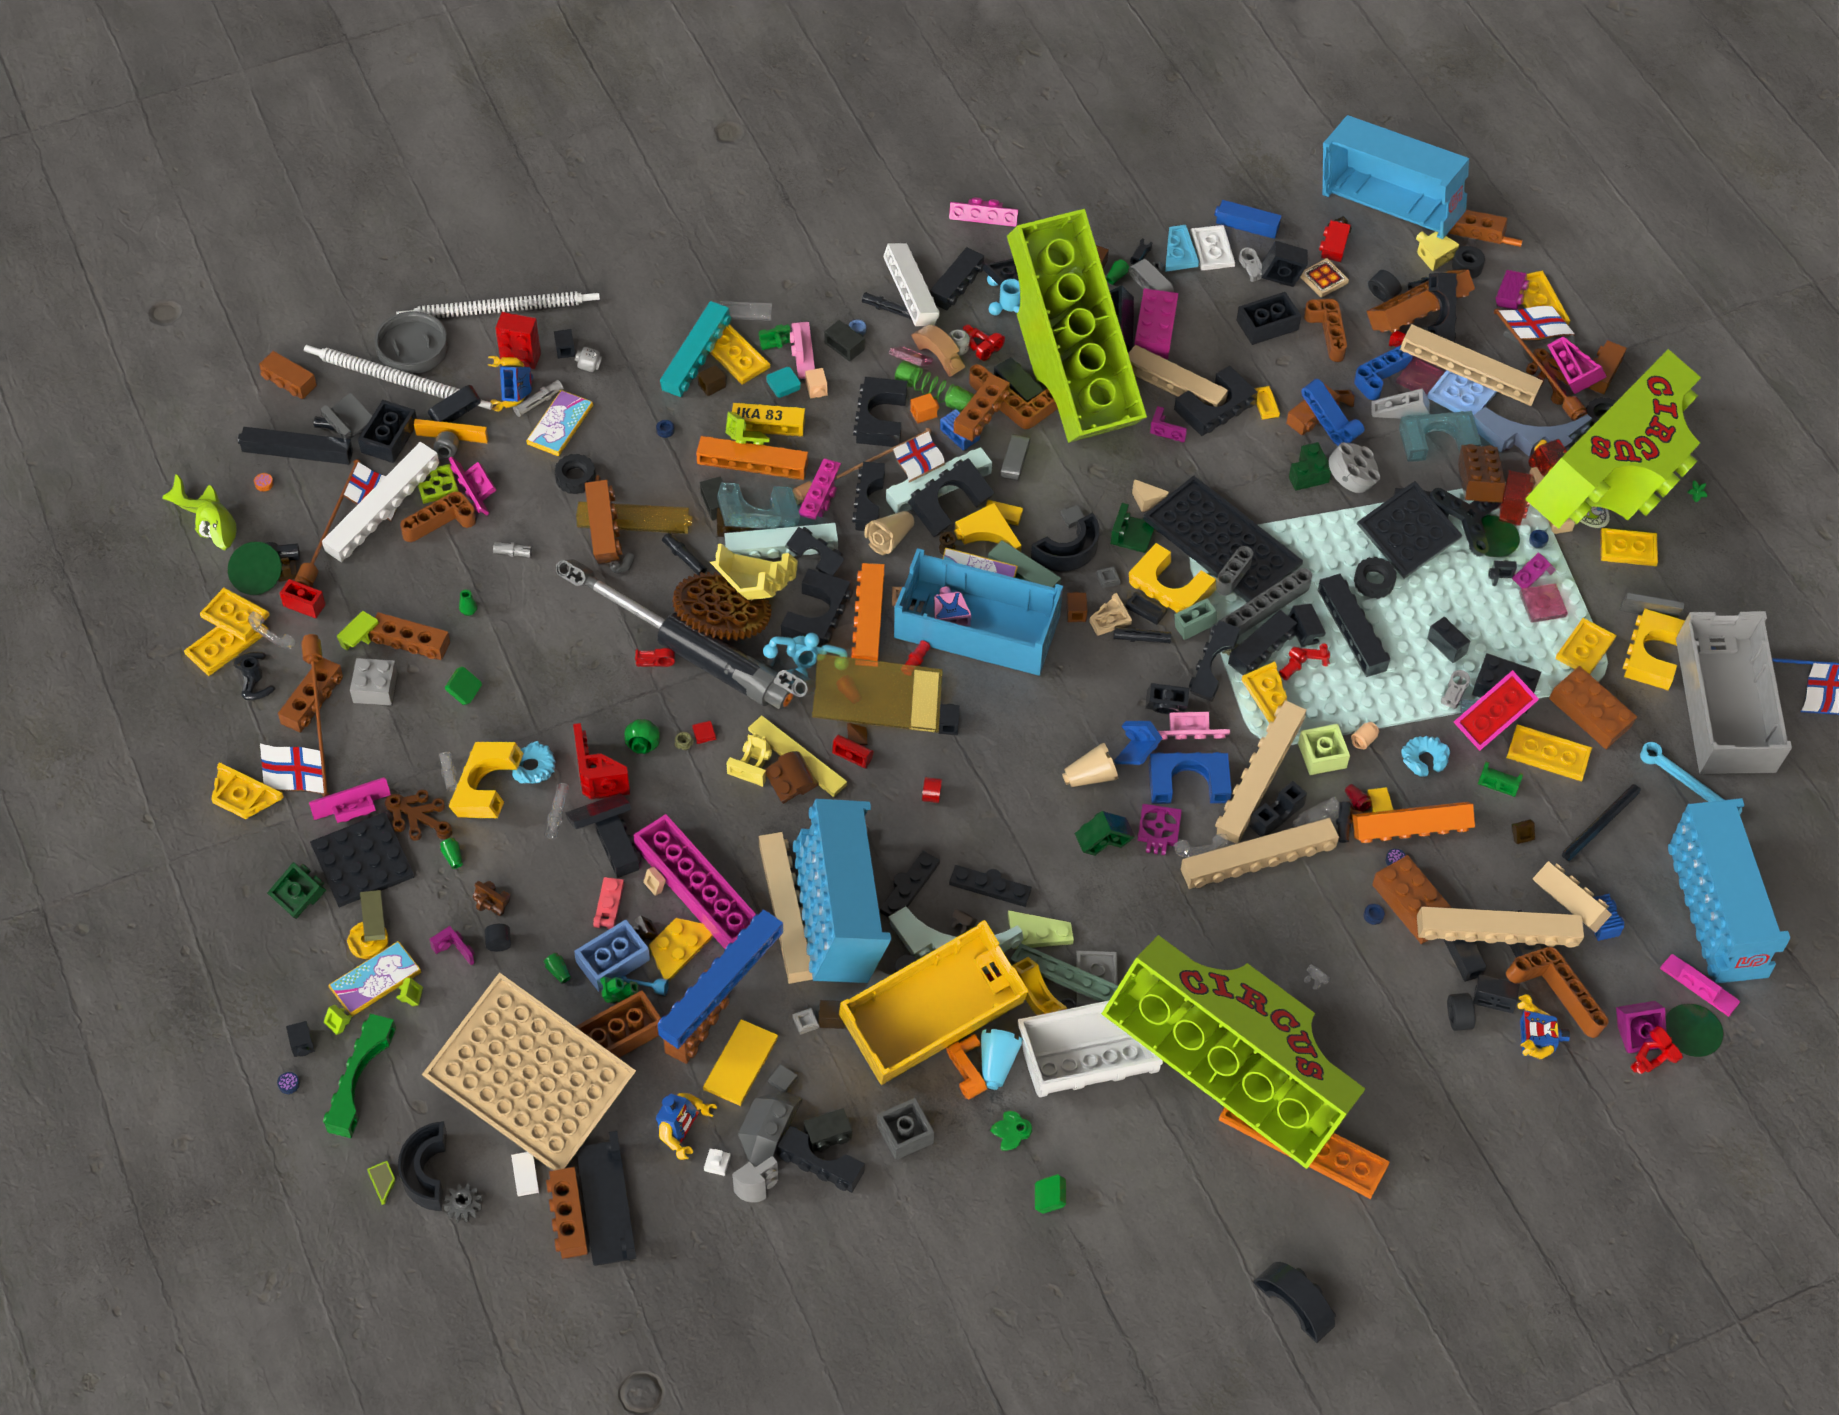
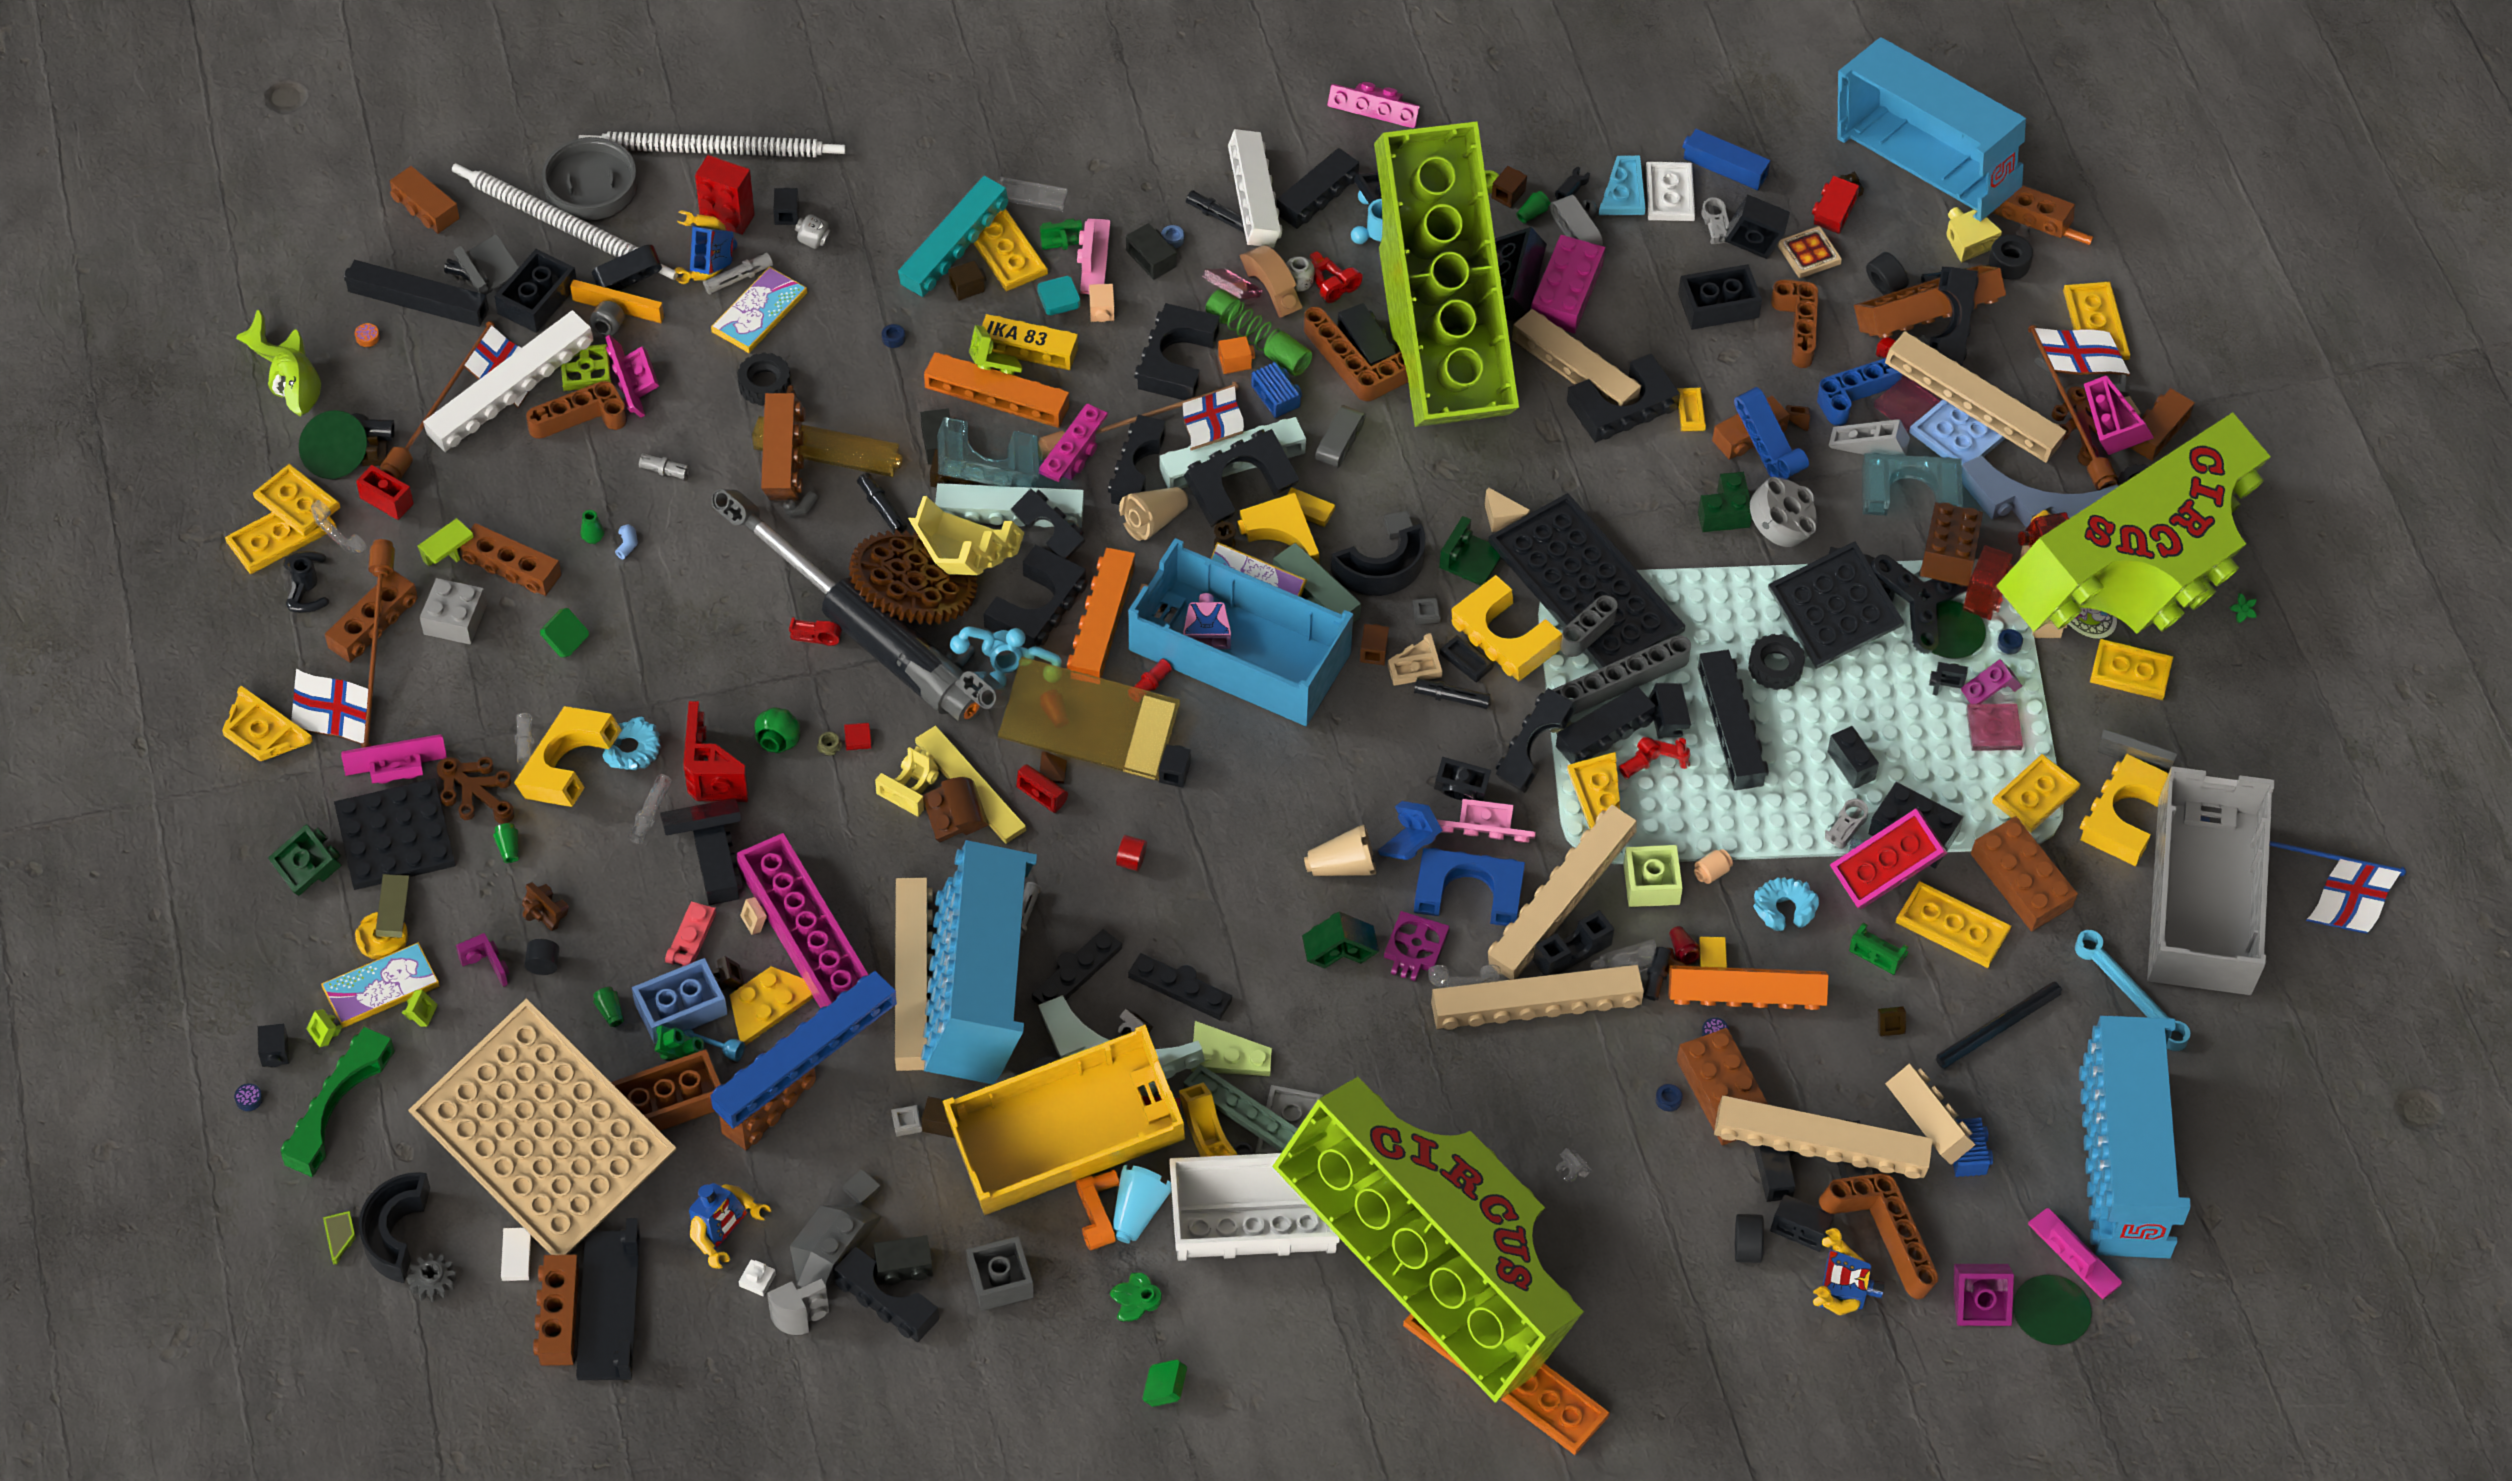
camera: 10 degrees right, 0 degrees up
(498, 609) = (630, 541): none -> light blue arm
(740, 1062) = (813, 1159): yellow tile -> none
(981, 407) = (1307, 365): dark orange brick -> none
(1164, 429) = (1541, 424): magenta bracket -> none
(1195, 619) = (1524, 681): sand green brick -> none
(1512, 289) = (2059, 302): magenta brick -> none
(1668, 1049) = (2003, 1317): red piece -> none

